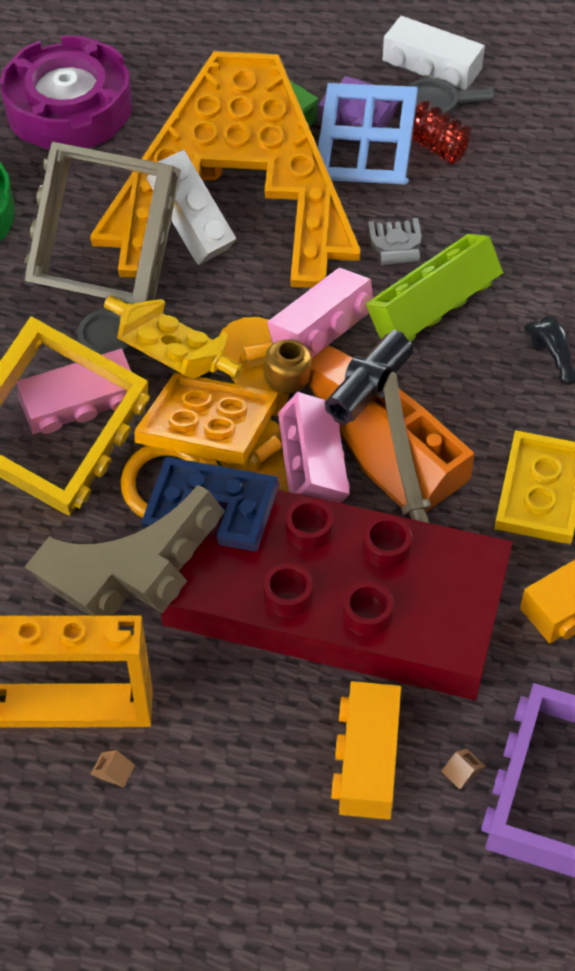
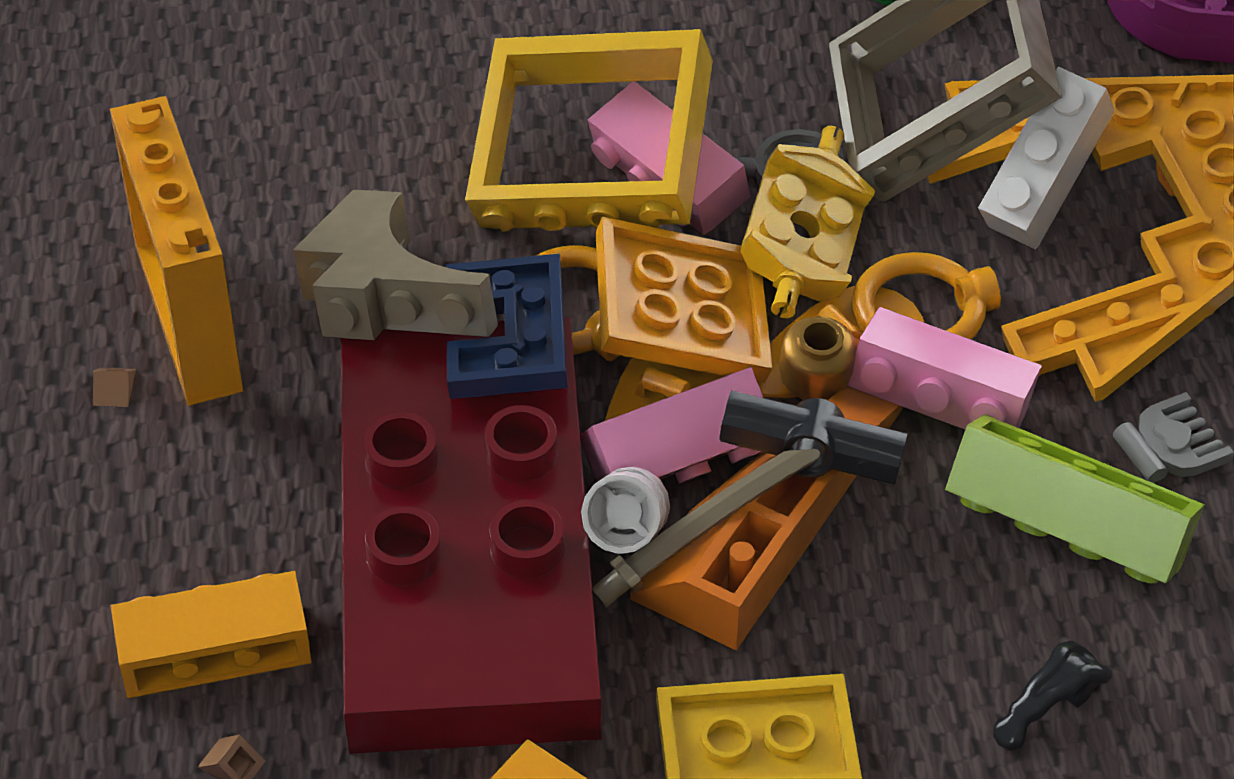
camera: 70 degrees right, 5 degrees down
(254, 285) = (973, 290): none -> light orange piece
(377, 486) = (625, 510): none -> white wheel

